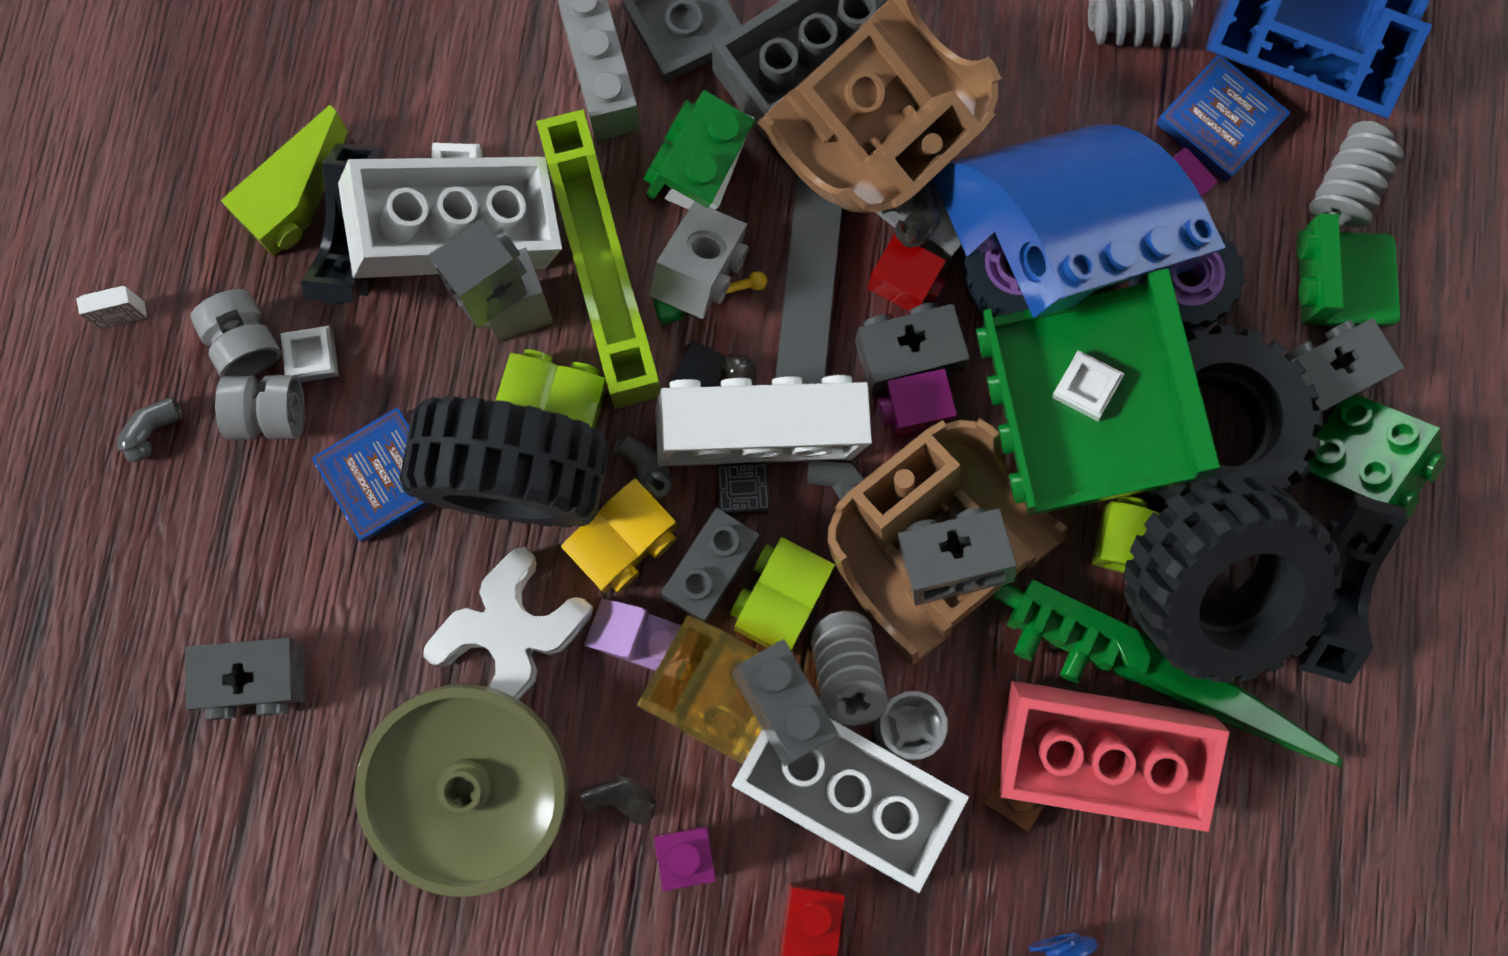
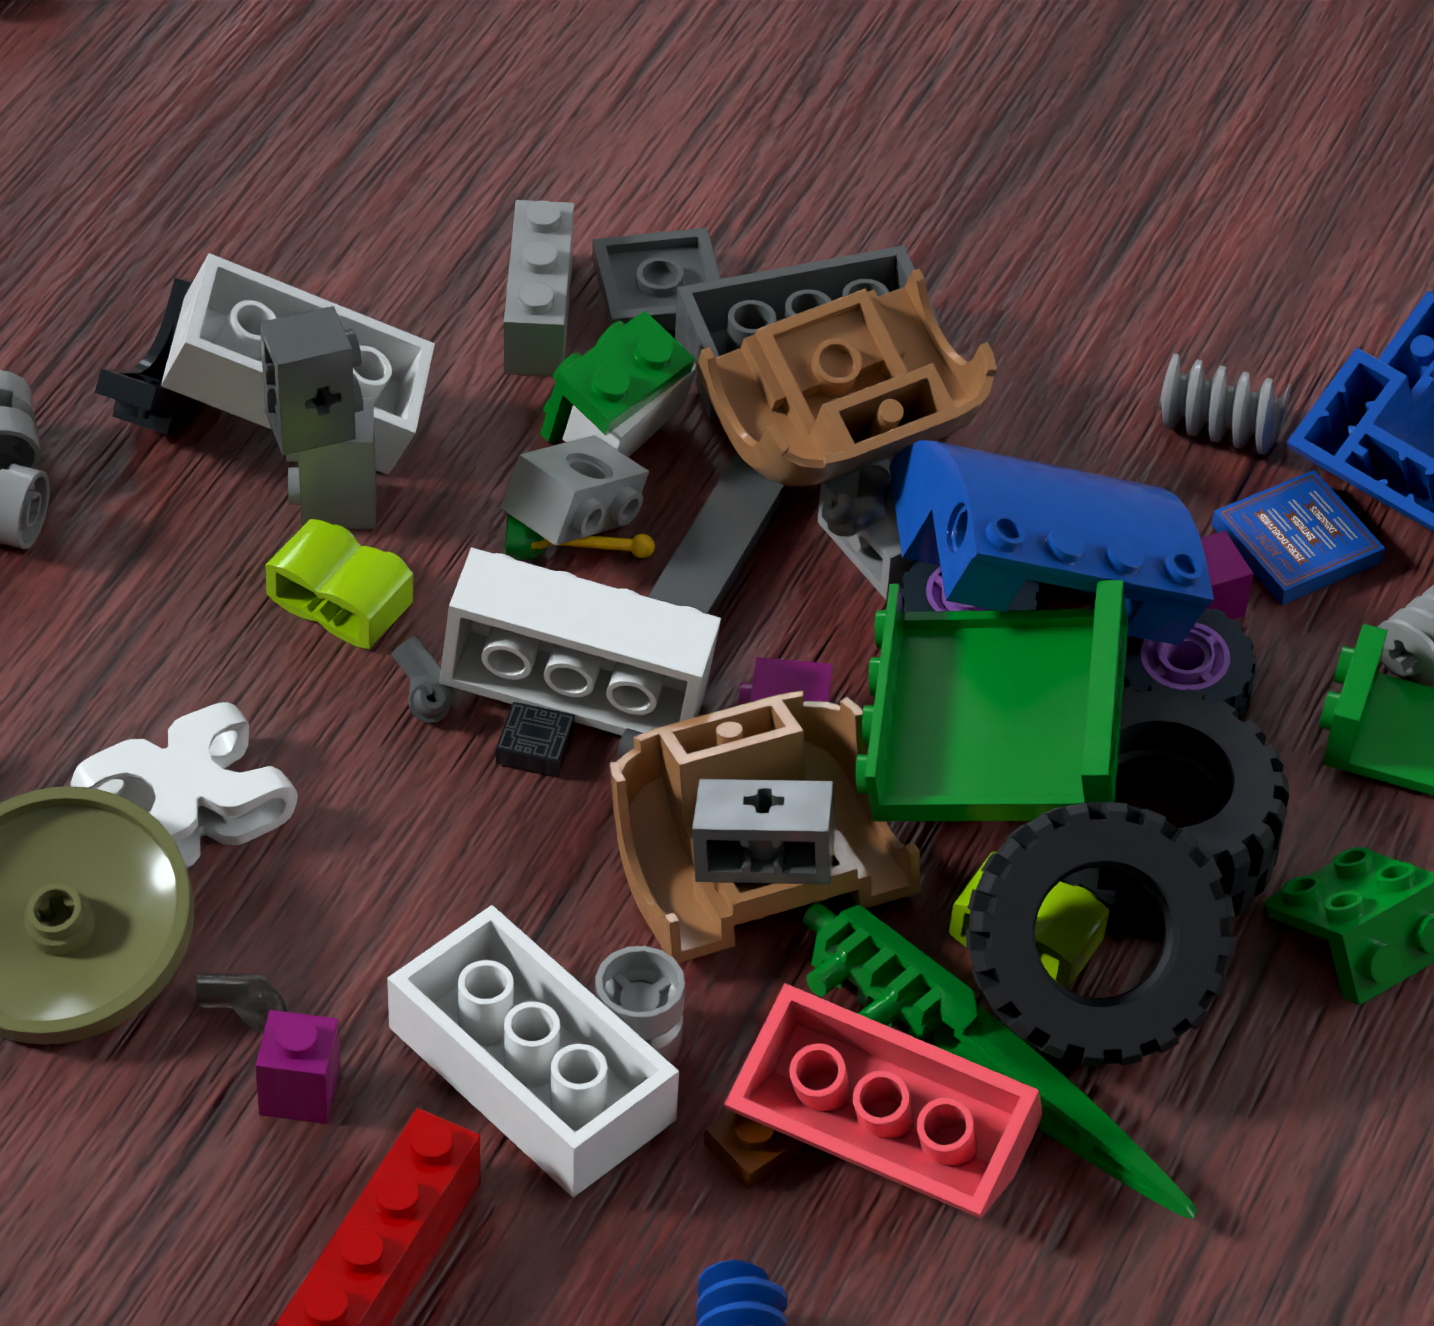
camera: 20 degrees right, 30 degrees down
(286, 189) = (114, 316): lime slope -> none
(310, 353) = (75, 478): white tile -> none
(366, 474) = (100, 611): blue tile -> none
(504, 461) = (257, 586): black tyre -> none
(599, 259) = (456, 456): lime arch -> none
(621, 537) = (362, 736): yellow brick -> none
(631, 634) = (342, 850): lavender slope -> none
(698, 693) = (405, 892): clear yellow slope -> none
(710, 566) = (459, 791): dark grey brick -> none
(783, 595) = (537, 848): lime brick -> none
(784, 702) = (485, 889): dark grey brick -> none
(848, 669) = (611, 921): light grey piece -> none
(907, 275) = (827, 579): red brick -> none
(929, 326) = (811, 634): dark grey brick -> none
(1088, 385) = (993, 695): white tile -> none
(1360, 355) = (1350, 806): dark grey brick -> none
(1363, 542) = (1263, 1033): black arch -> none

